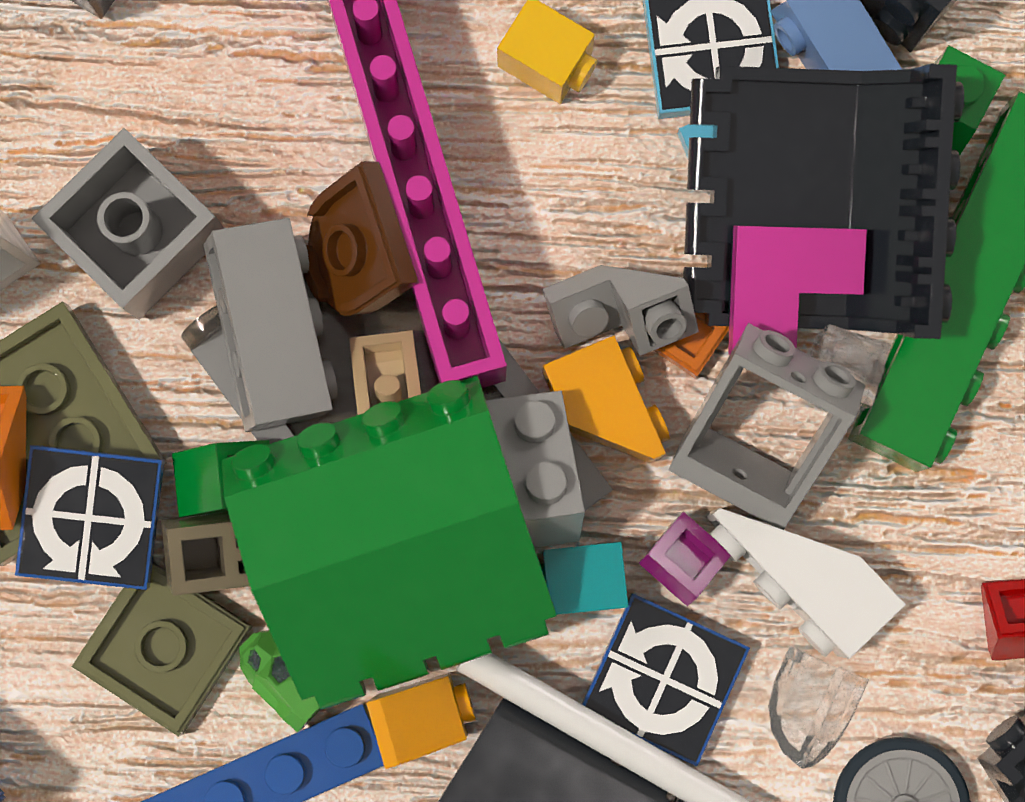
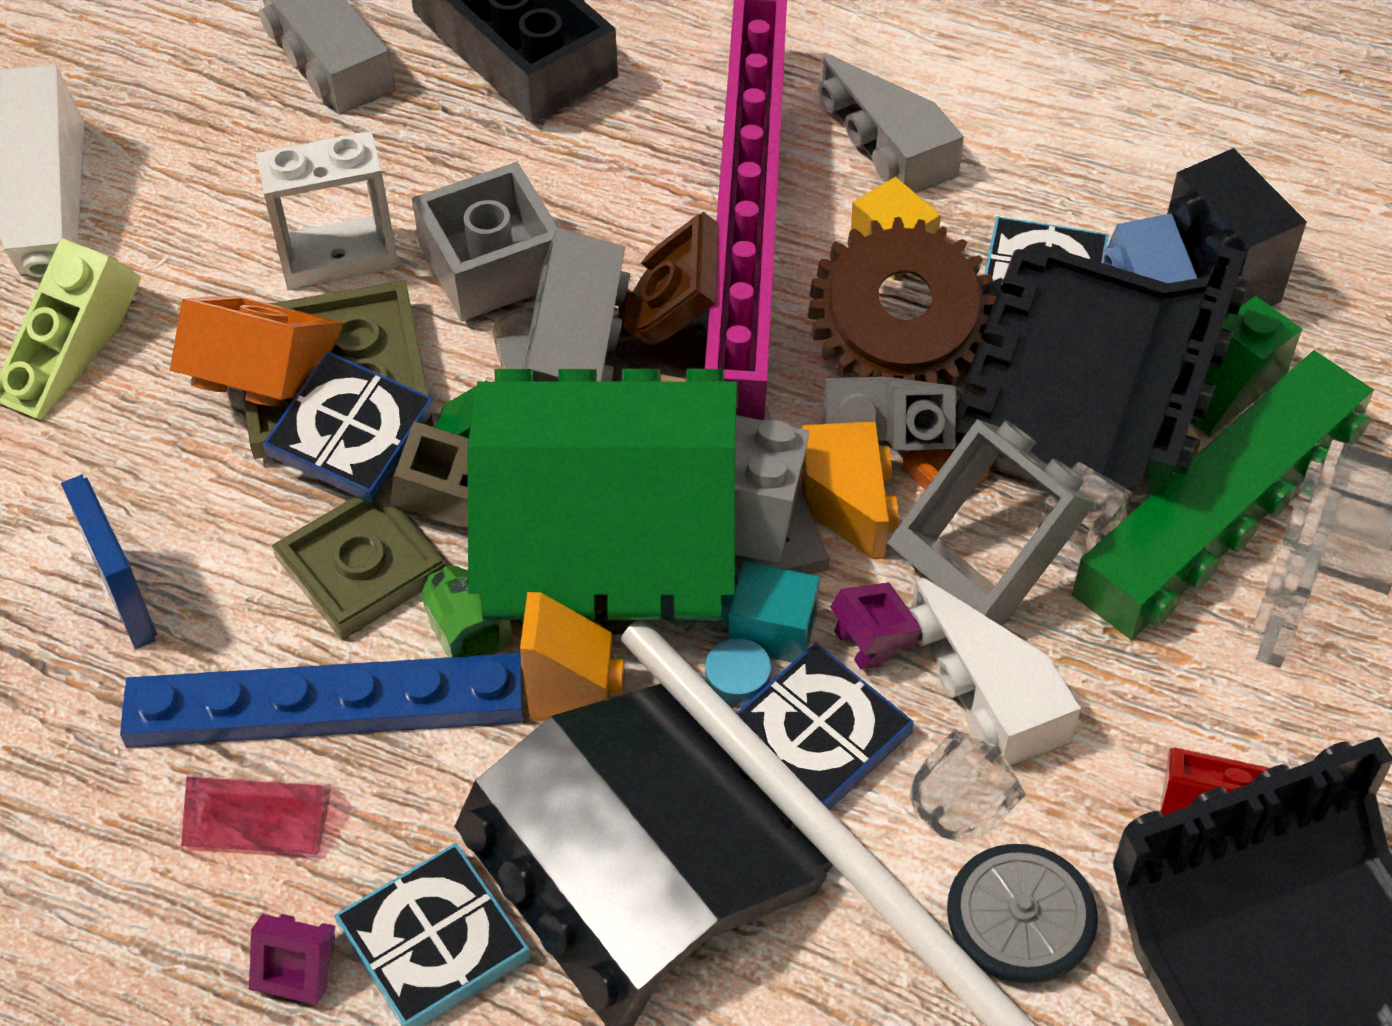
camera: 20 degrees right, 30 degrees down
(541, 160) = (886, 346): none -> reddish brown gear
(571, 645) = (737, 670): none -> medium azure tile
(780, 263) = (1060, 409): dark pink tile -> none

